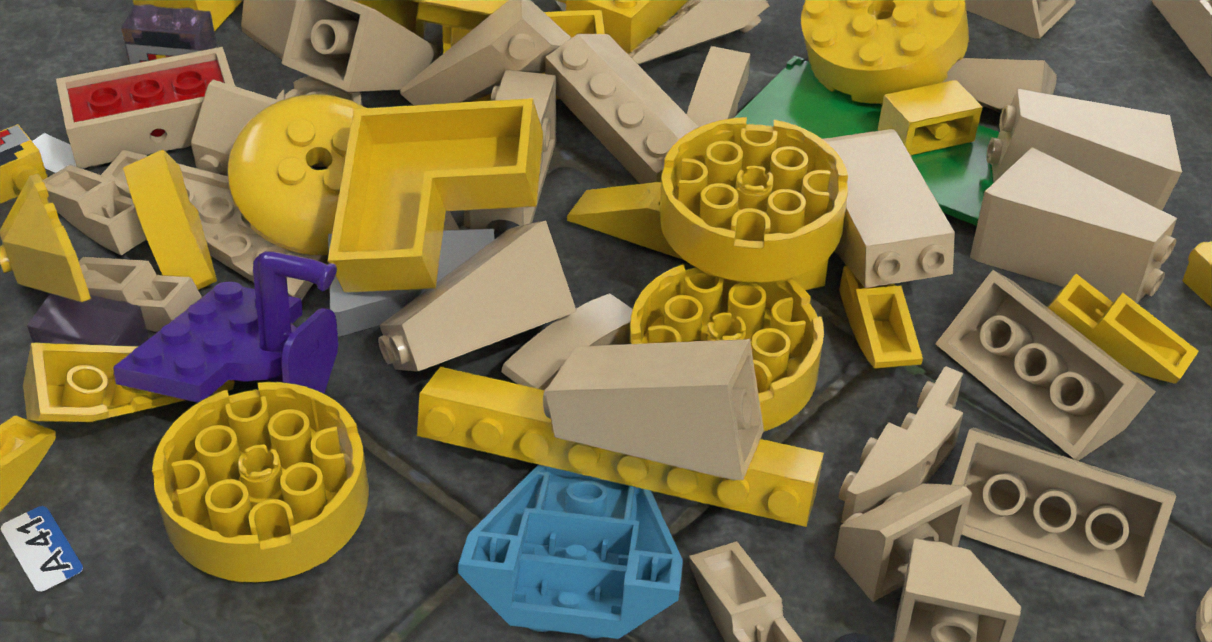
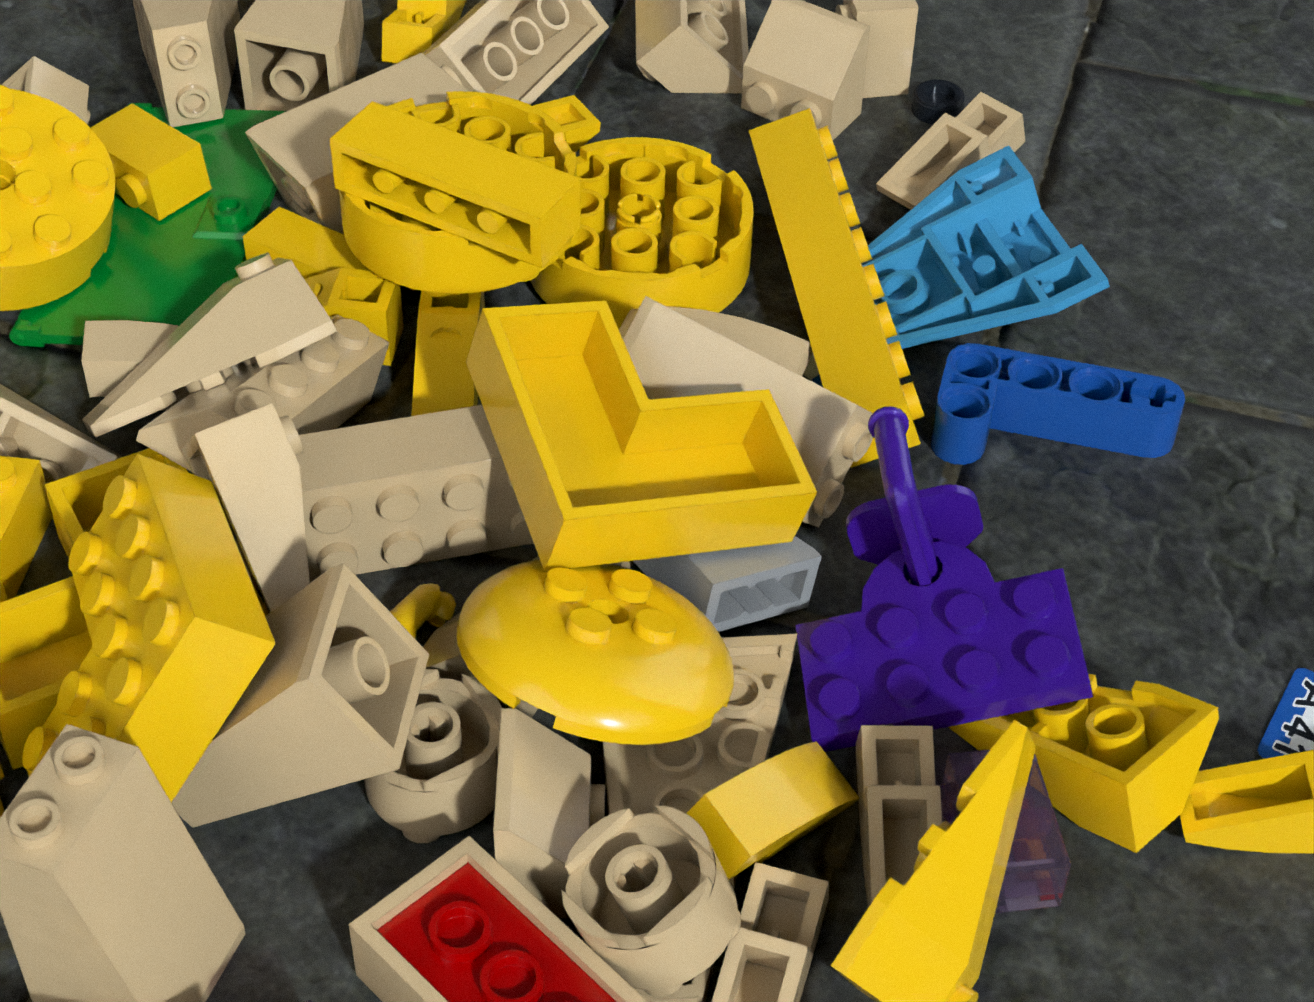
camera: 115 degrees left, 0 degrees up
(137, 129) = (651, 897): none -> tan brick
(261, 482) = (1112, 504): yellow brick -> none
(433, 503) = (1052, 401): none -> blue beam
(662, 403) = (807, 194): tan slope -> none
(675, 91) = (247, 319): none -> tan wedge
(698, 145) = (457, 183): none -> yellow brick
(908, 453) = (679, 96): tan slope -> none

